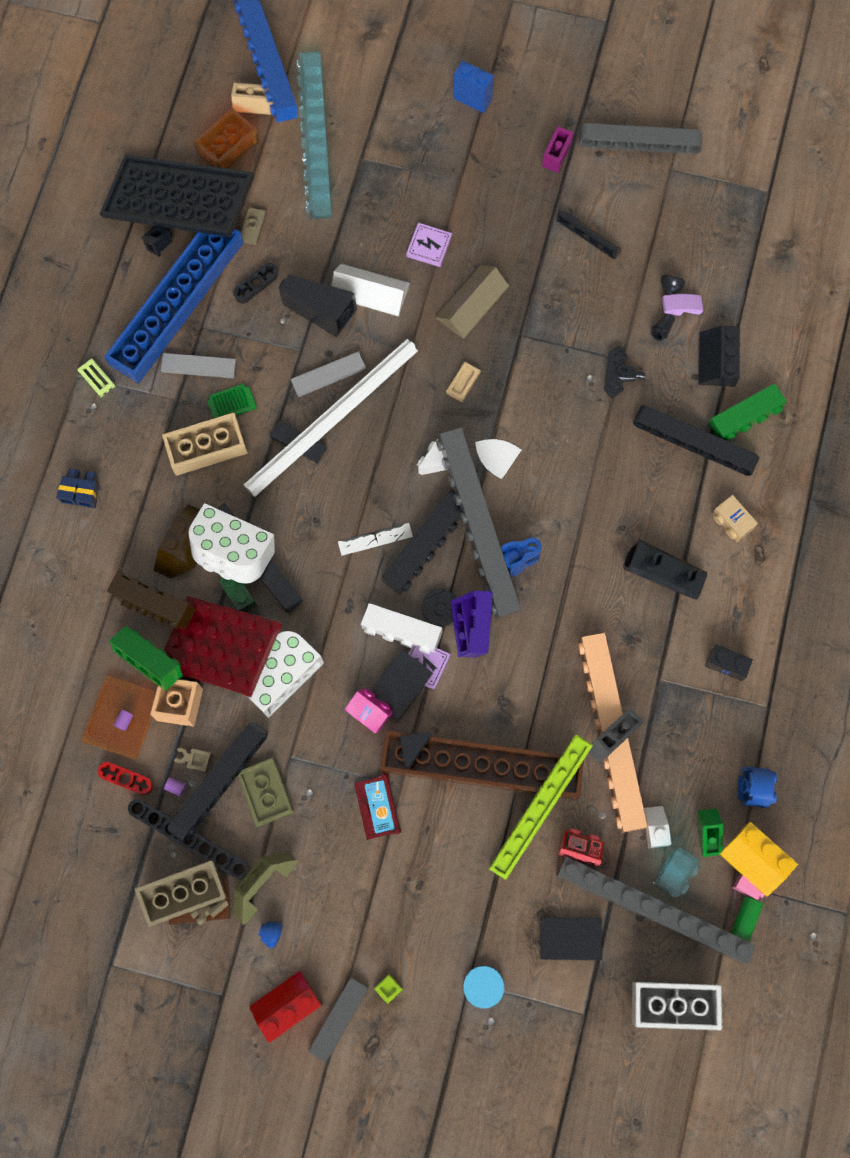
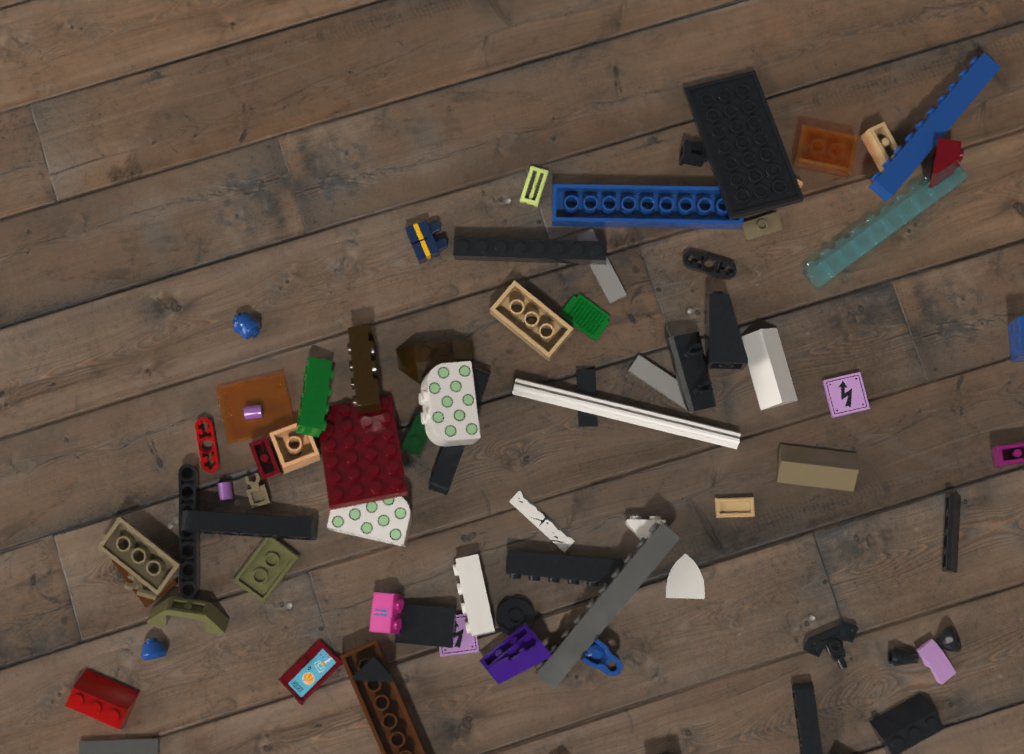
camera: 55 degrees right, 5 degrees up
(45, 681) = (246, 325): none -> blue piece
(146, 410) = (530, 250): none -> black brick
(171, 733) = (265, 459): none -> dark red brick
(294, 55) = (945, 160): none -> dark red slope
(330, 345) = (691, 371): none -> black piece

